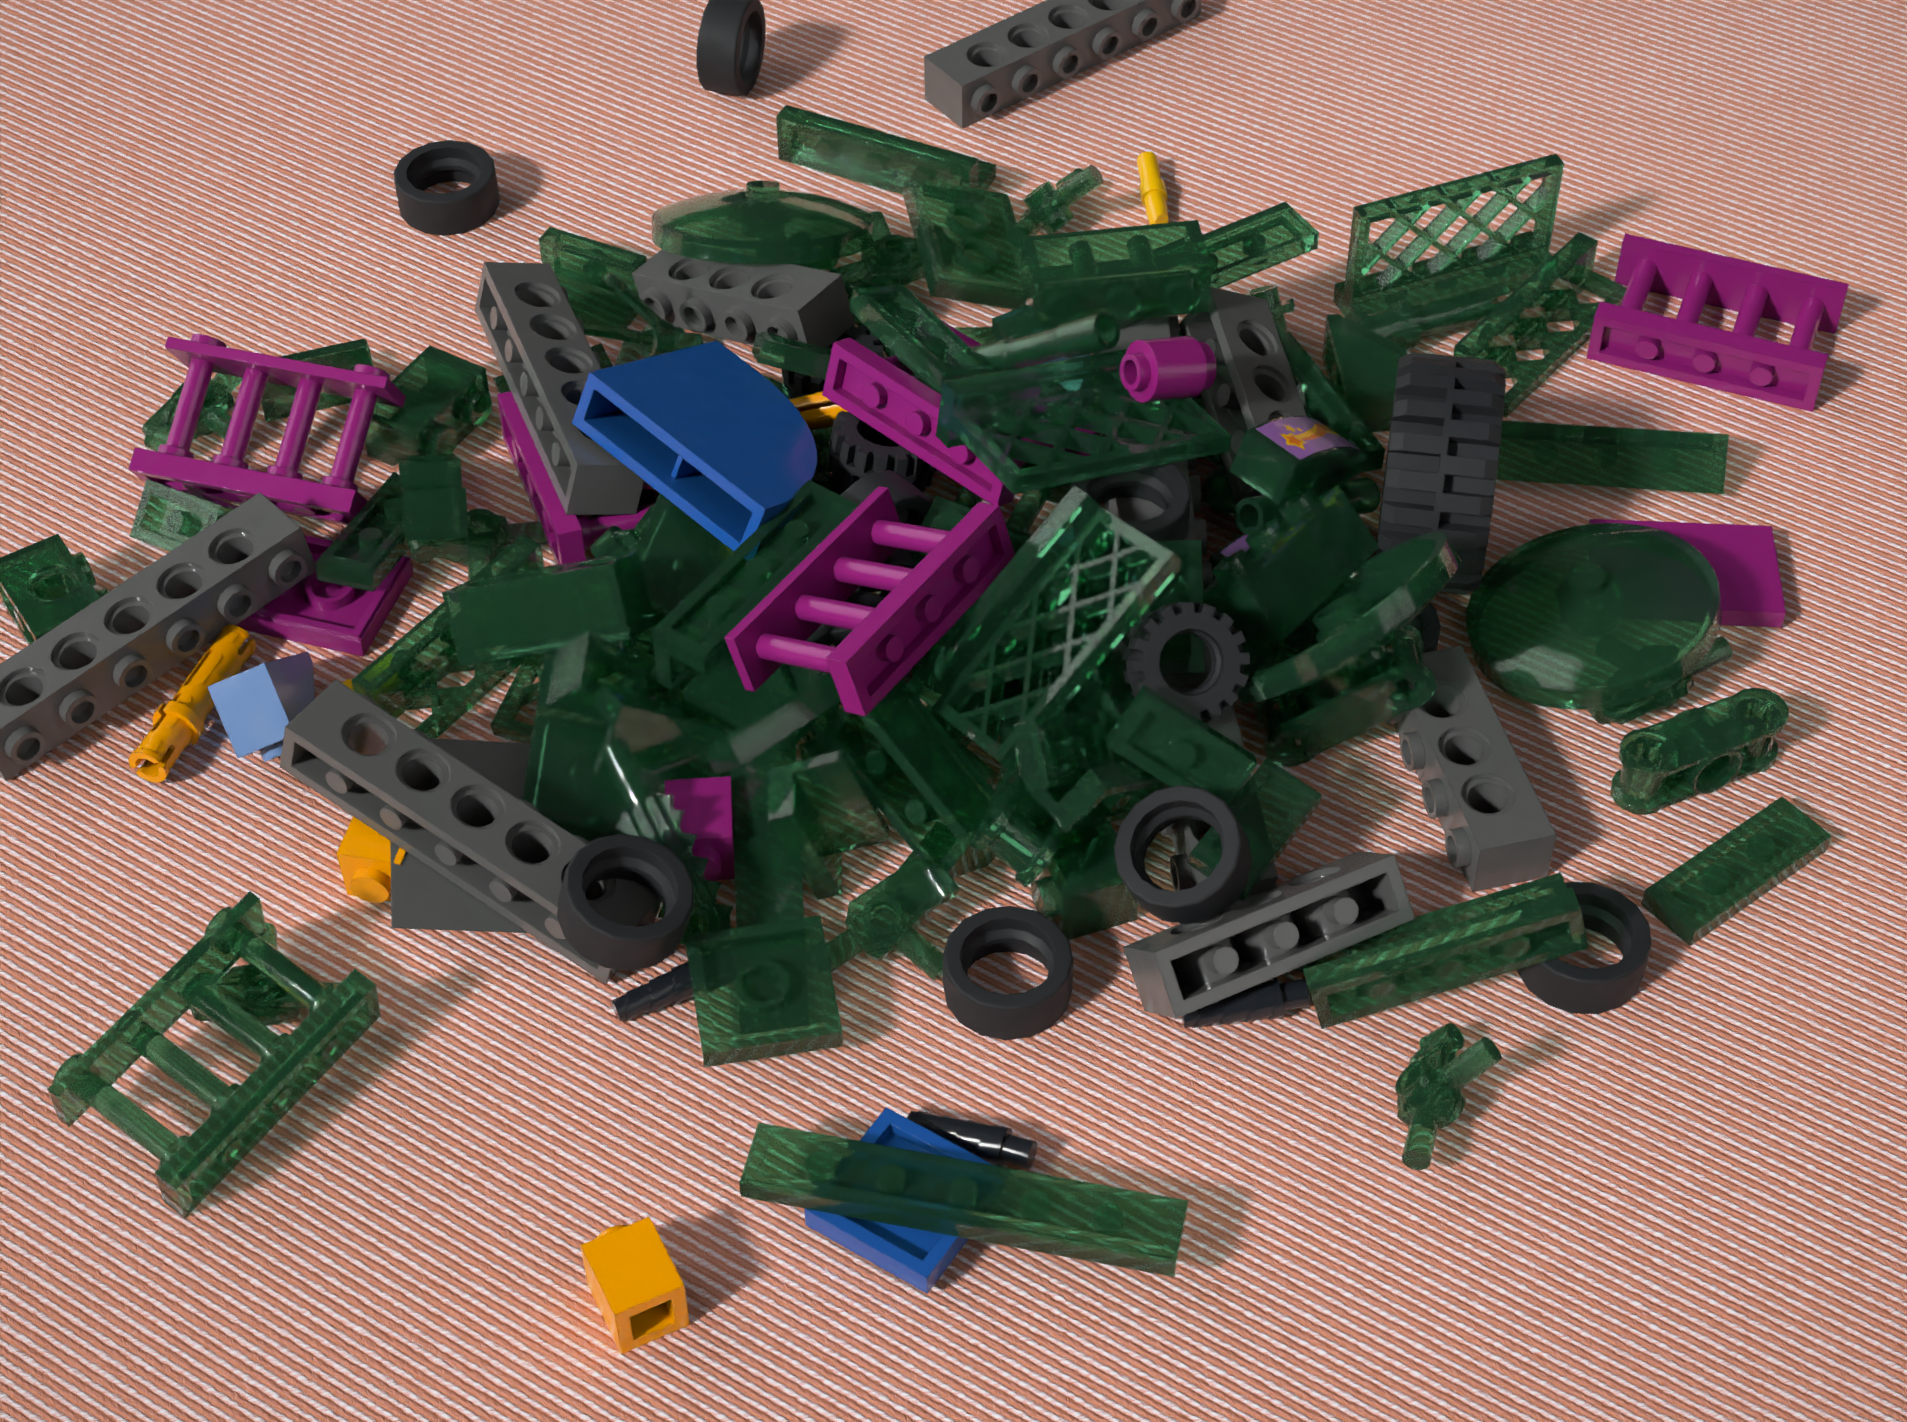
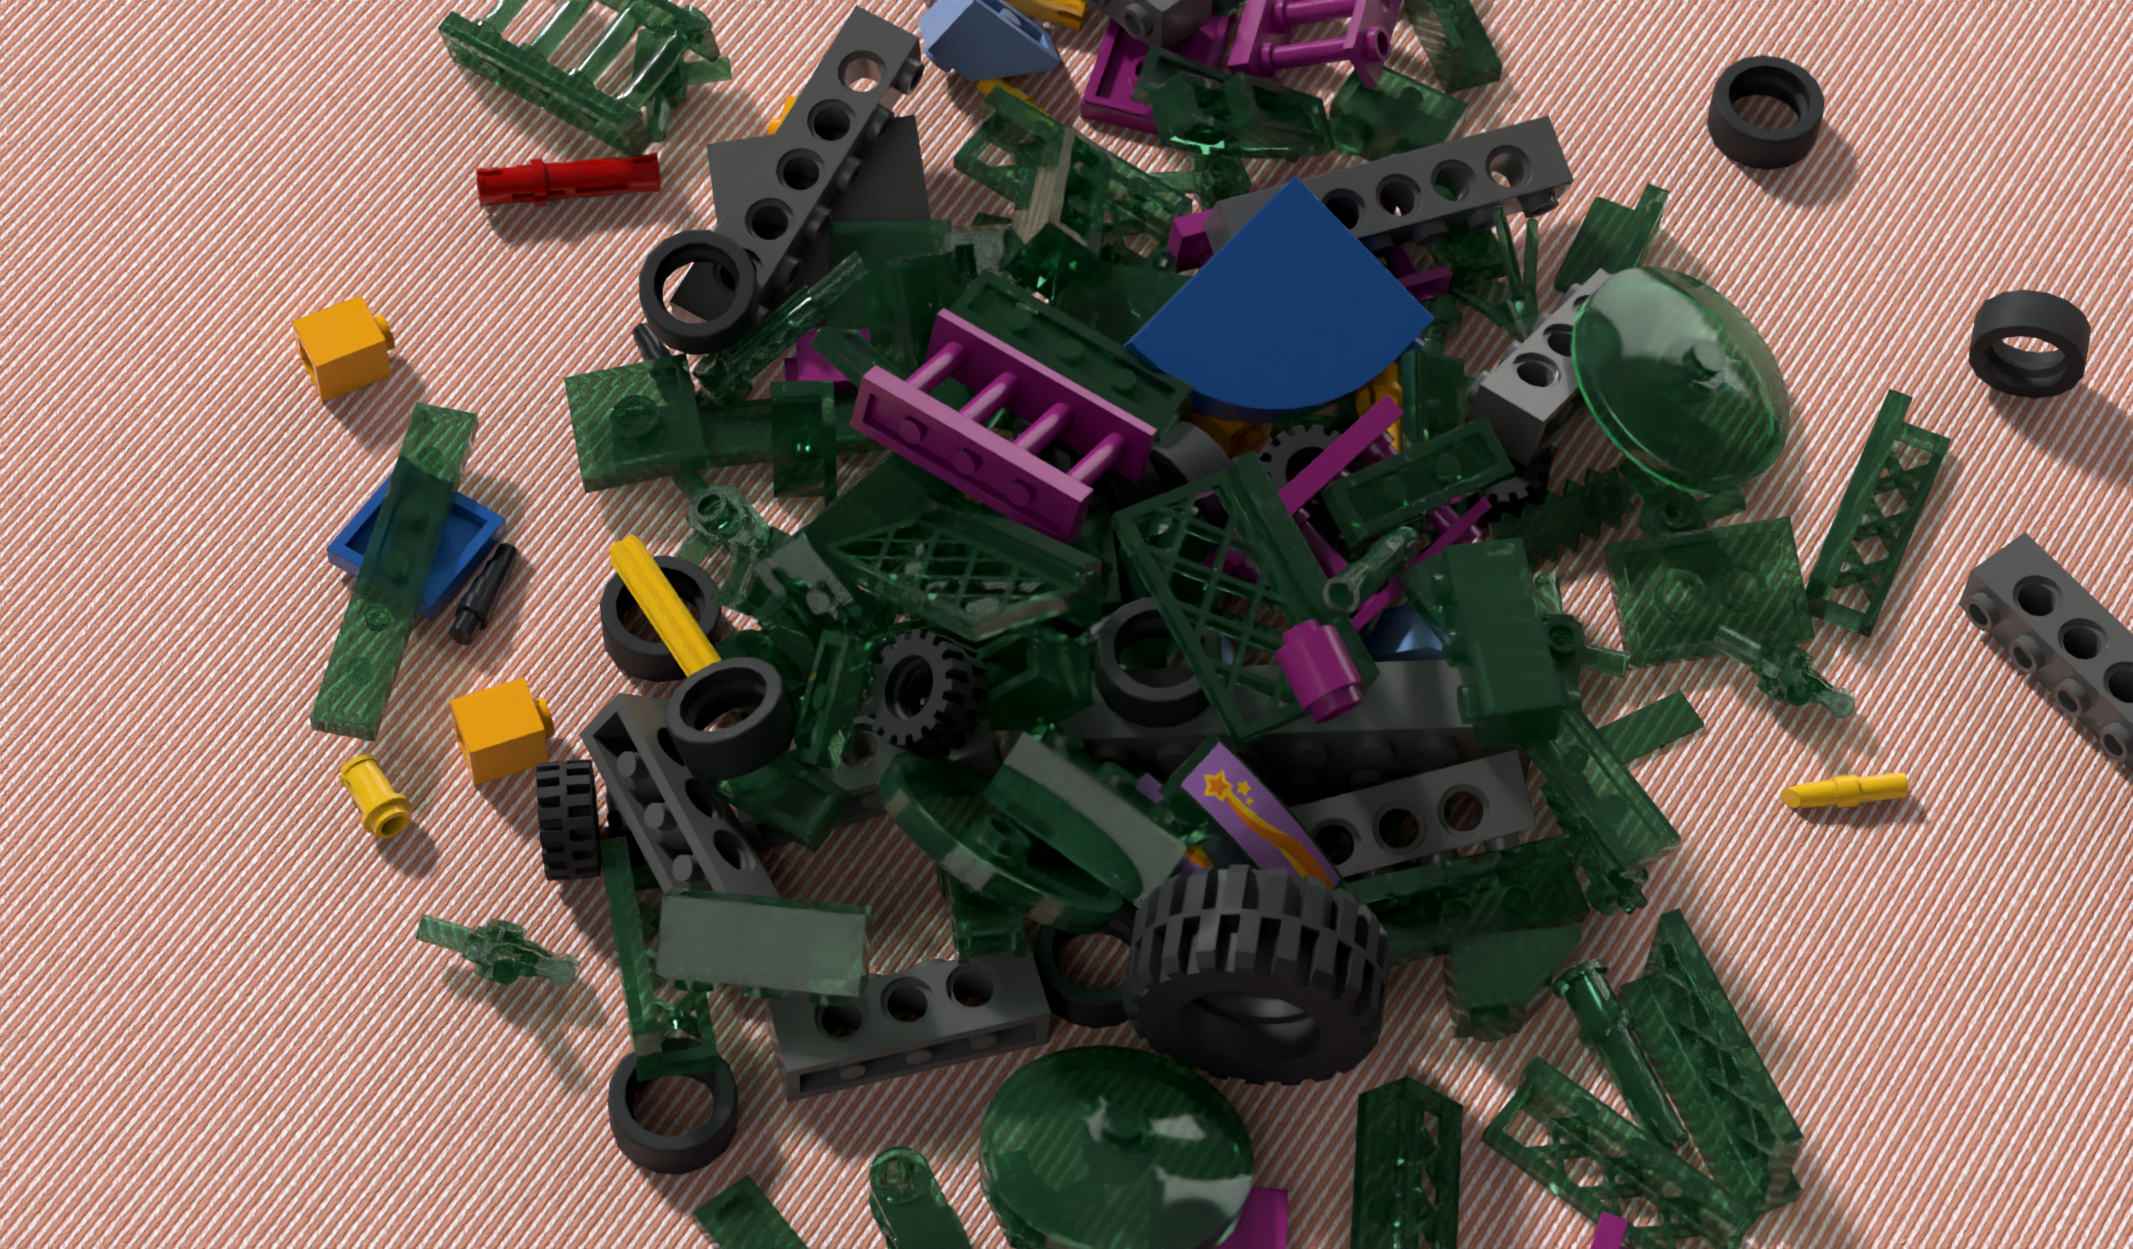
camera: 85 degrees right, 10 degrees up
(404, 1099) = (579, 178): none -> red pin
(1032, 935) = (662, 605): none -> yellow axle
(1161, 1104) = (501, 730): none -> light orange brick
(1246, 1222) = (382, 808): none -> yellow pin
(1283, 1021) = (568, 819): none -> black tyre
(1444, 821) = (764, 945): none -> clear green brick

